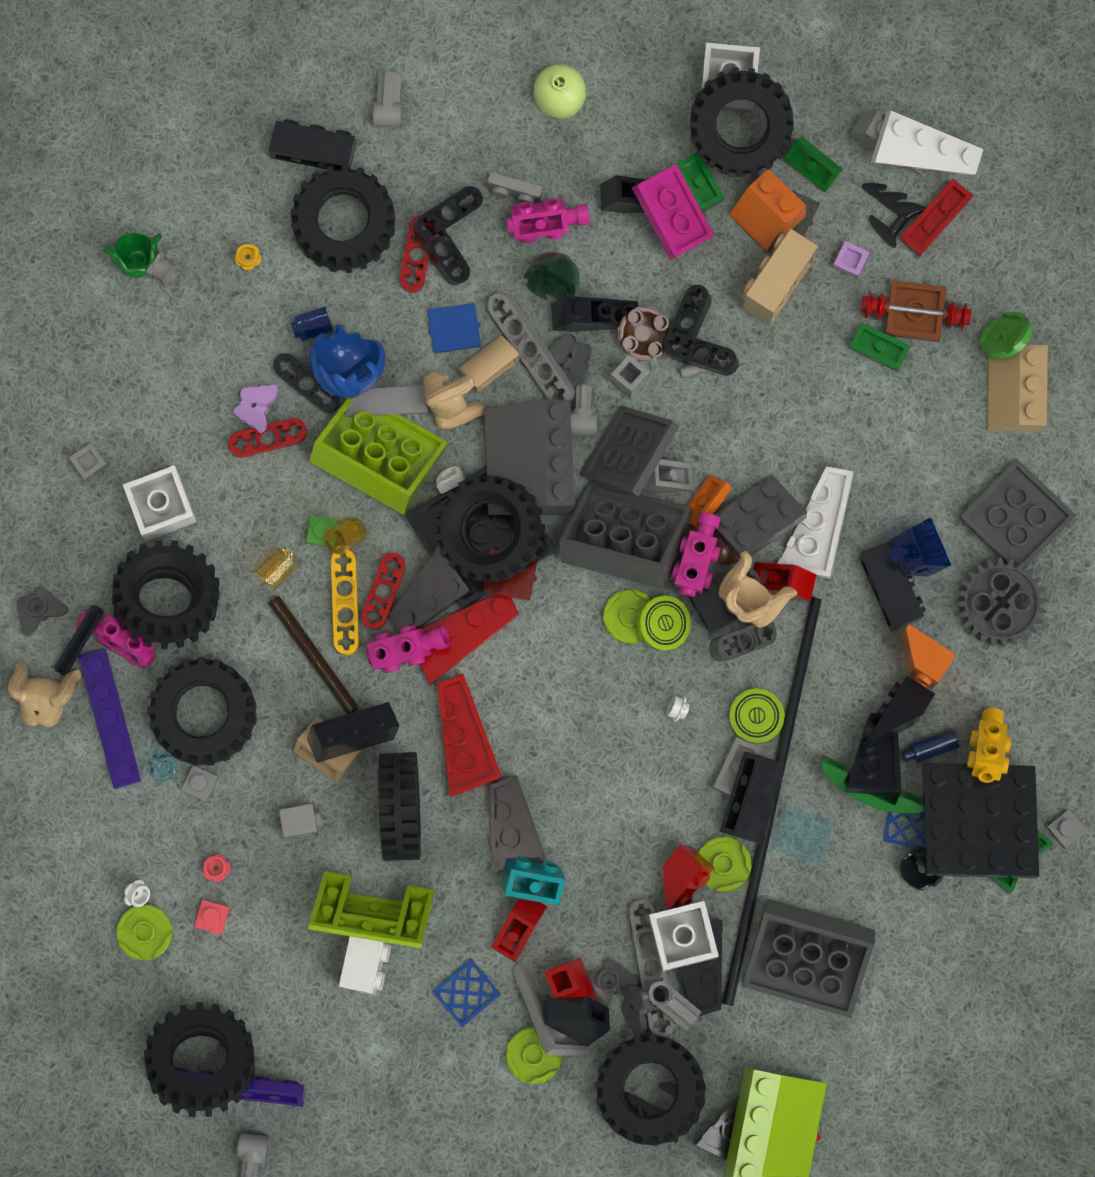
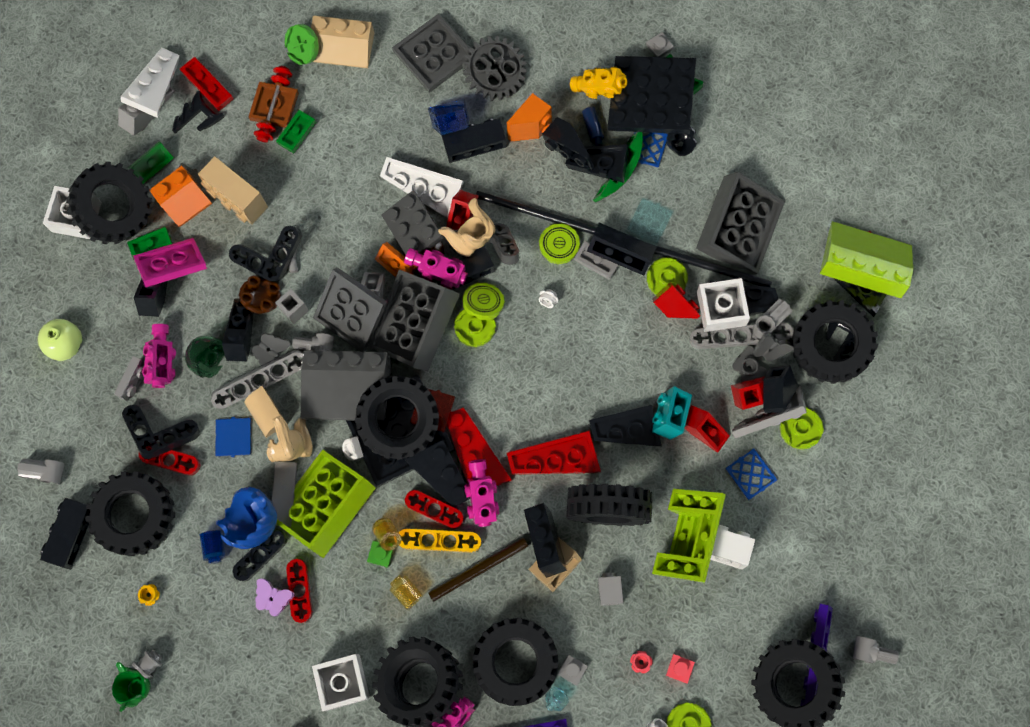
camera: 80 degrees left, 5 degrees down
(851, 259) = (227, 144): lavender plate -> none

